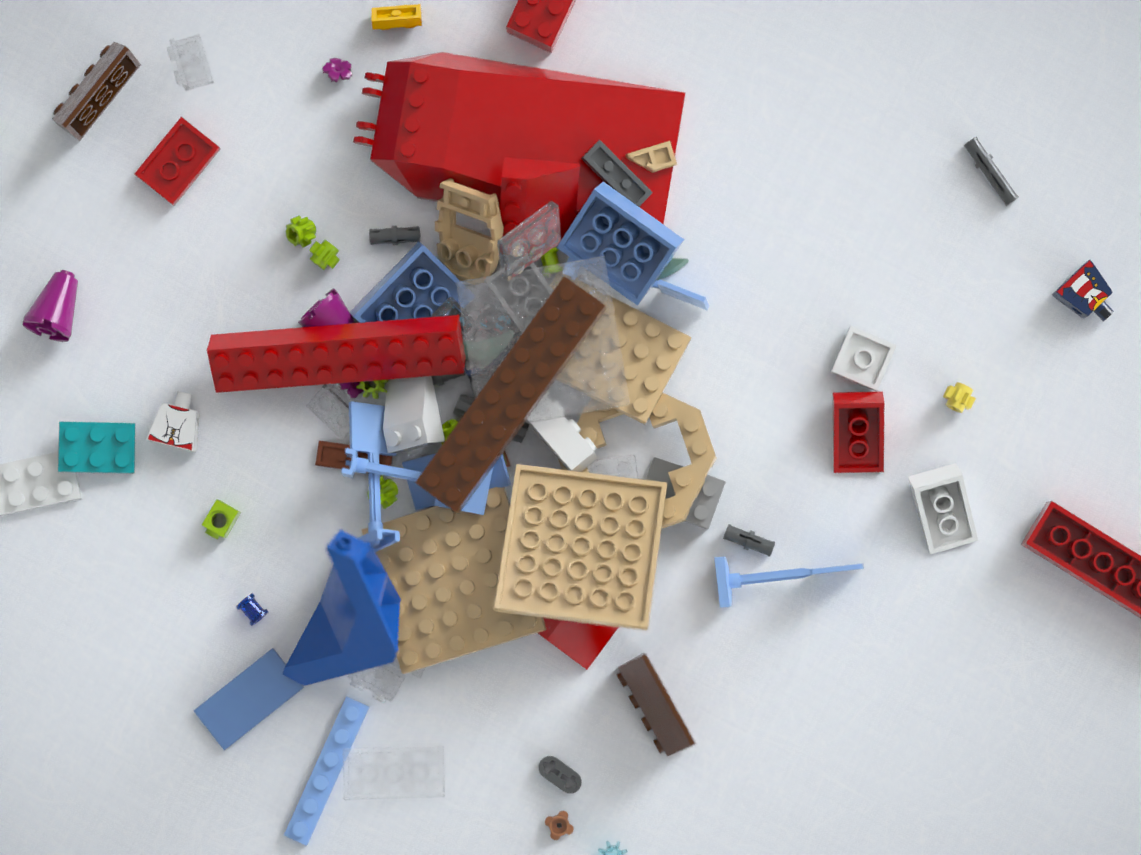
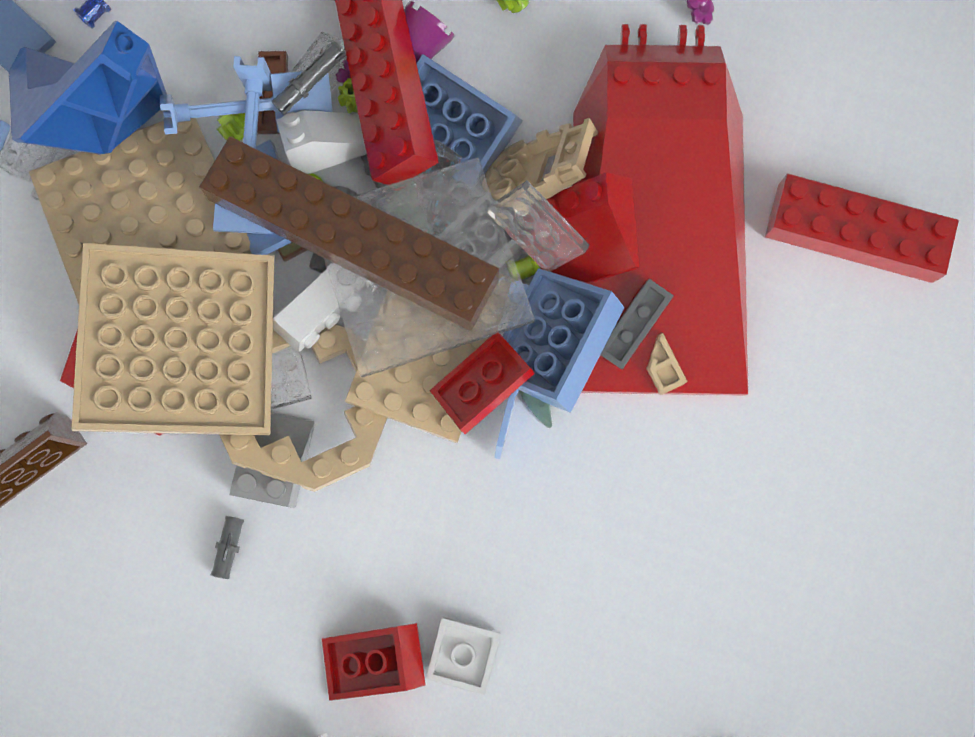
camera: 85 degrees right, 5 degrees down
(324, 254) = (491, 23): lime gear -> none
(359, 416) = (308, 78): none -> dark grey pin
(394, 235) = (525, 95): dark grey pin -> none
(396, 17) = (772, 59): yellow plate -> none
(649, 307) = (481, 382): none -> red plate
(728, 581) = (193, 640): light blue piece -> none

